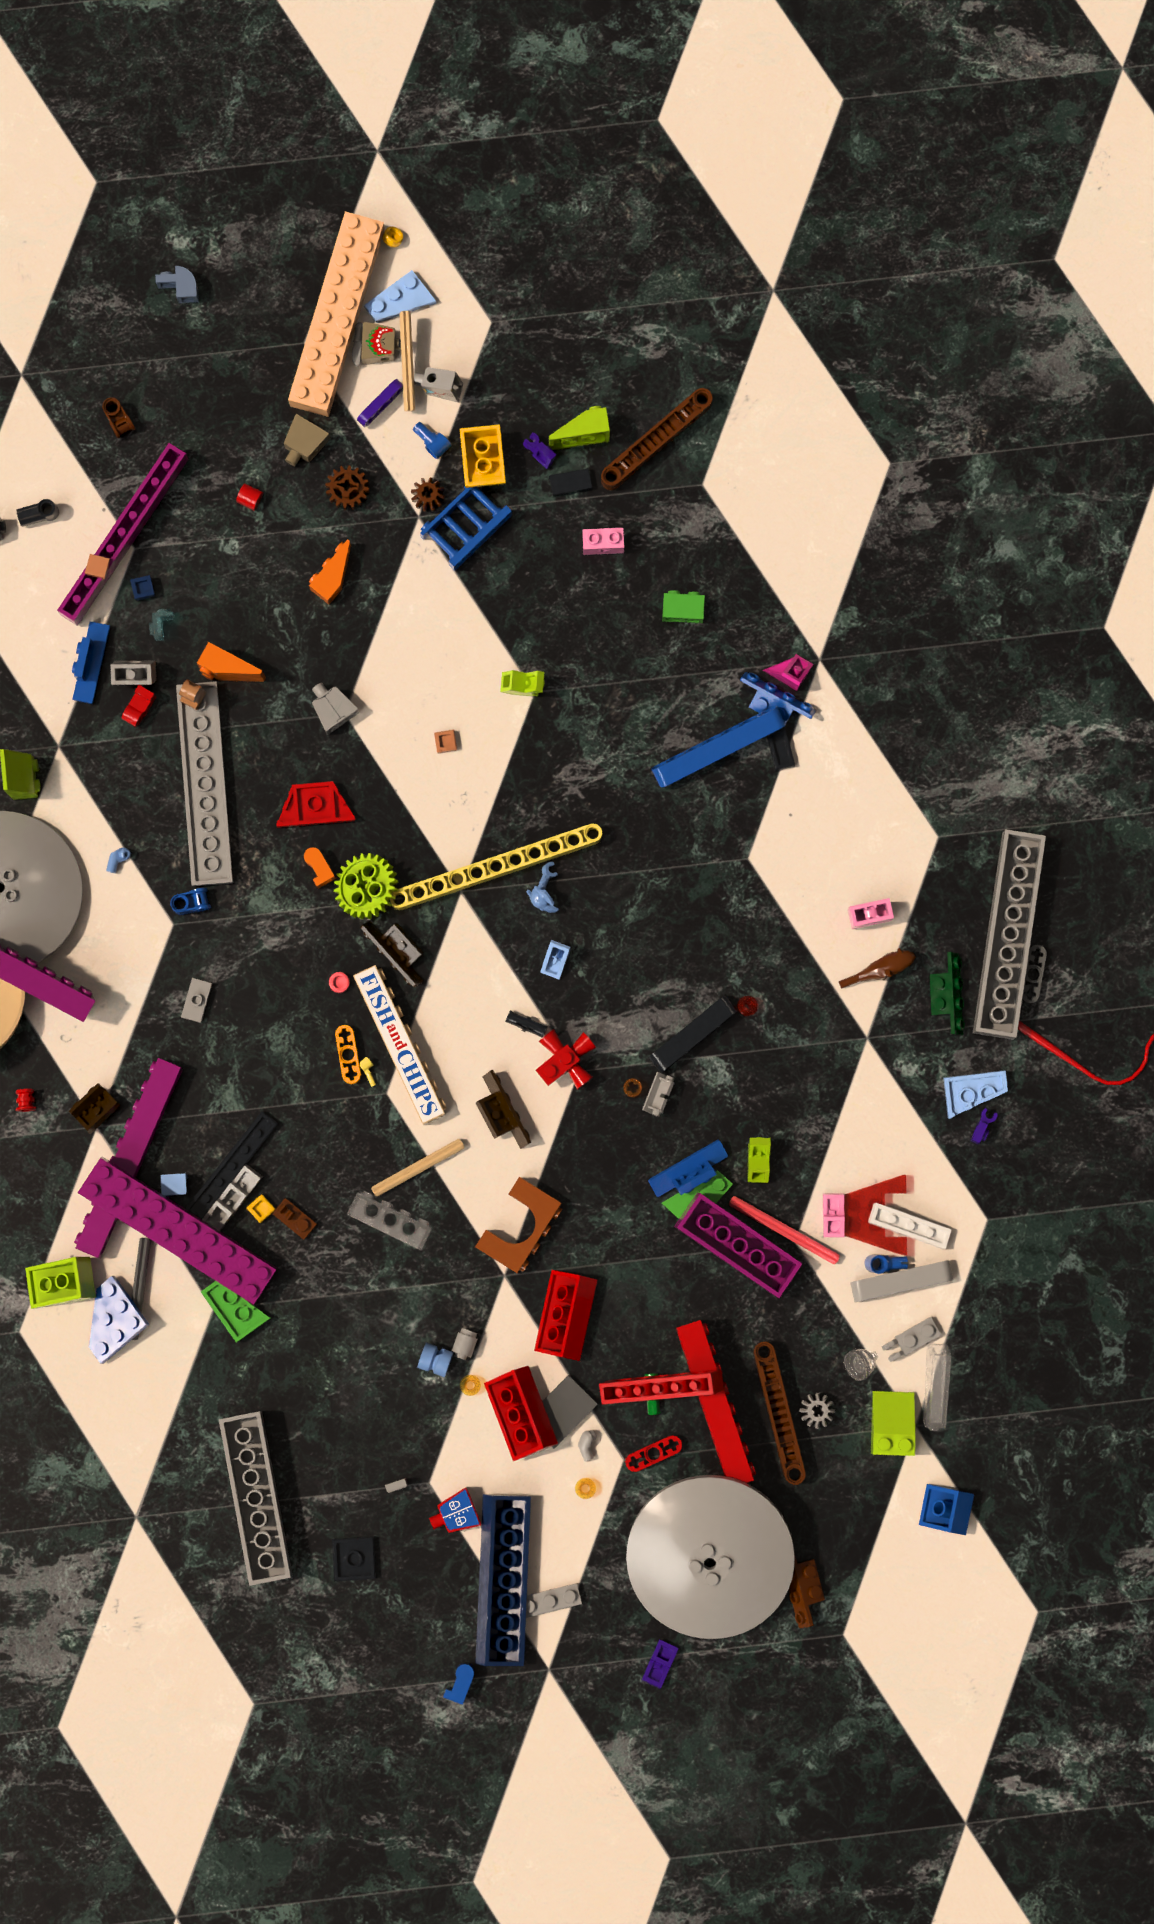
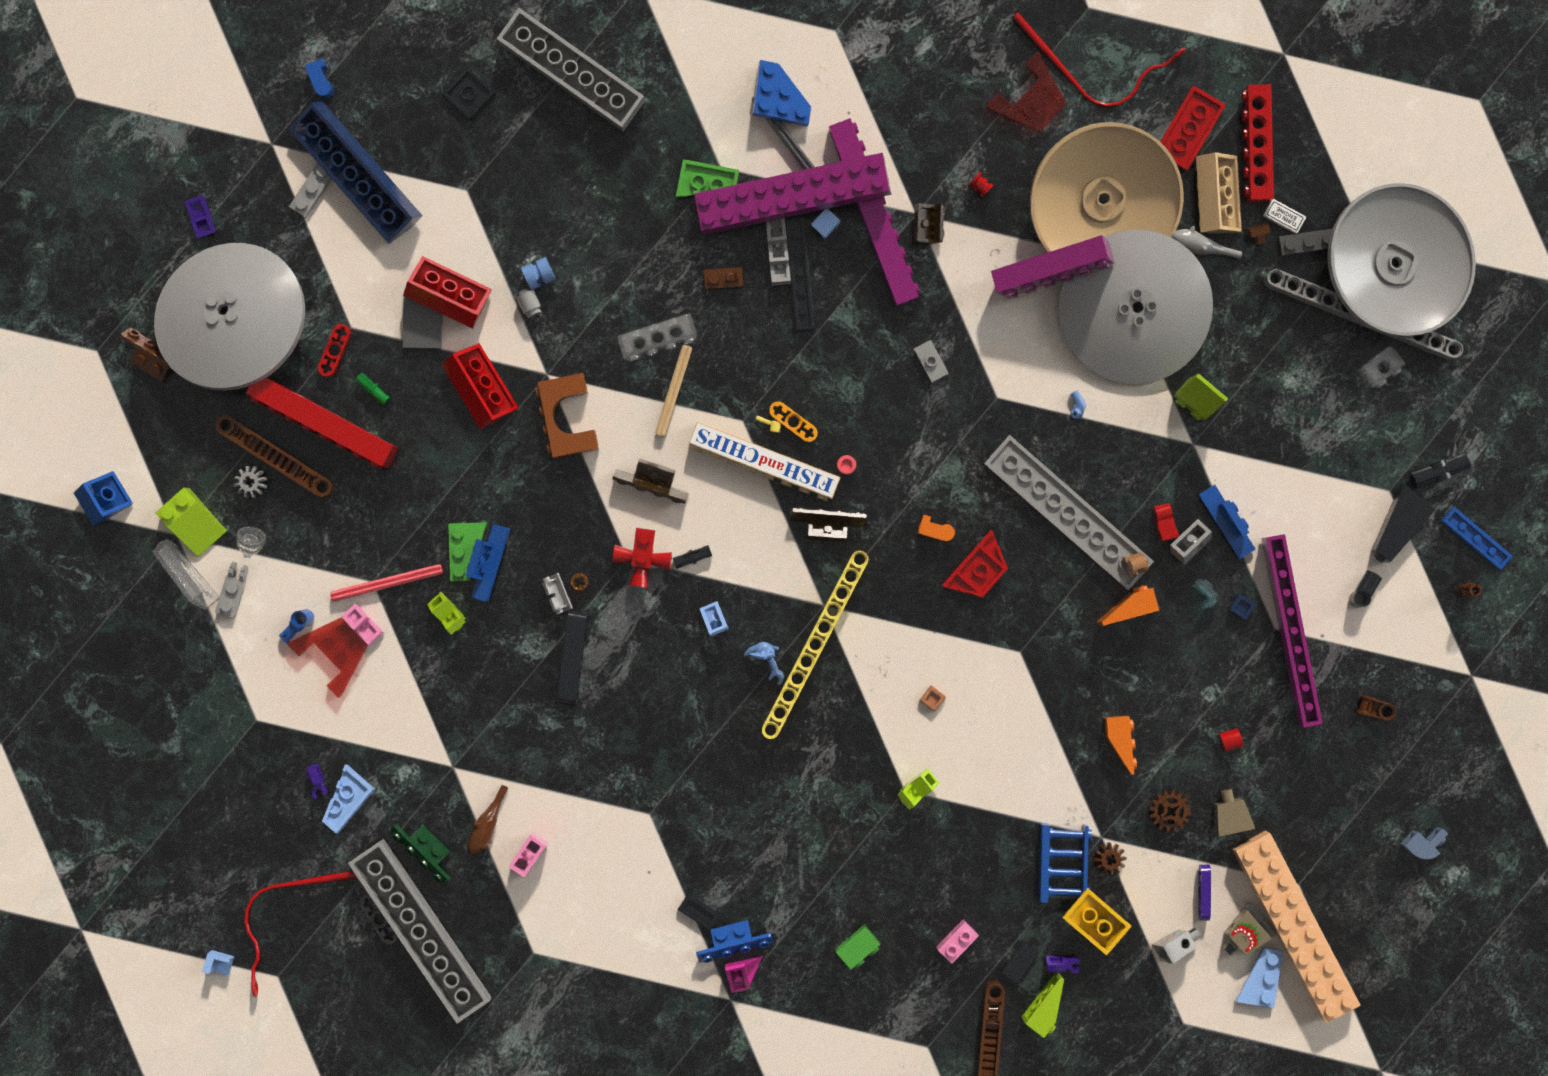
camera: 135 degrees right, 5 degrees up
(60, 1282) = (838, 87): lime slope -> none
(97, 566) = (1286, 590): nougat tile -> none
(192, 901) = (998, 424): blue piece -> none
(261, 1208) = (752, 263): yellow tile -> none
(332, 707) = (1032, 647): light grey torso -> none
(350, 893) = (896, 531): lime gear -> none
(392, 236) = (1310, 1019): yellow tile -> none
(396, 1485) = (485, 167): light grey tile -> none
(407, 361) = (1214, 939): tan axle -> none
(435, 443) = (1138, 900): blue pin -> none
(456, 1513) = (428, 187): blue torso -> none
(470, 1392) = (499, 273): clear yellow plate -> none
(585, 1443) = (386, 313): light grey arm -> none
(585, 1495) = (352, 284): clear yellow plate -> none
(661, 1386) = (365, 396): red brick -> none
(718, 746) = (741, 872): blue beam -> none
(738, 1245) = (406, 541): magenta brick -> none
(752, 1004) = (550, 715): clear red plate -> none
(901, 1281) = (274, 623): light grey beam -> none
(909, 1226) = (303, 665): white plate -> none

